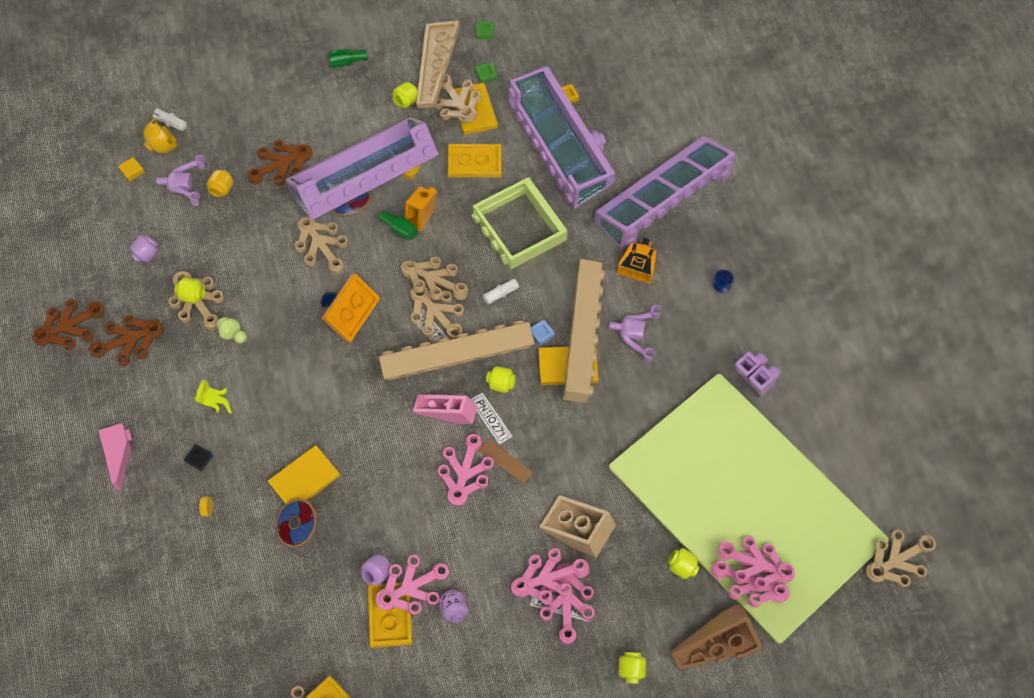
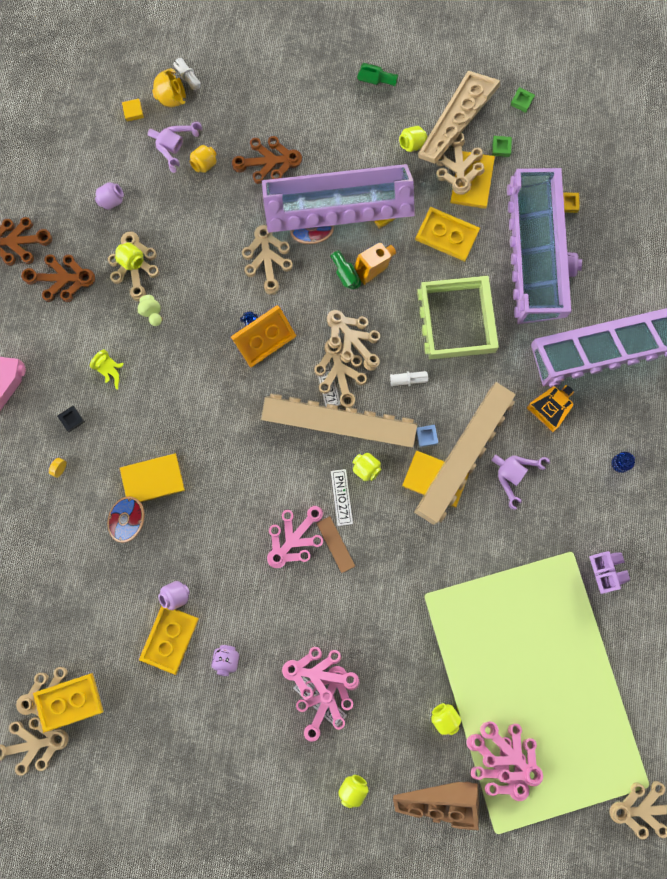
camera: 30 degrees right, 15 degrees up
(409, 587) = (195, 625): bright pink plant -> none
(446, 408) = (304, 471): bright pink slope -> none
(578, 525) = (369, 637): tan slope -> none

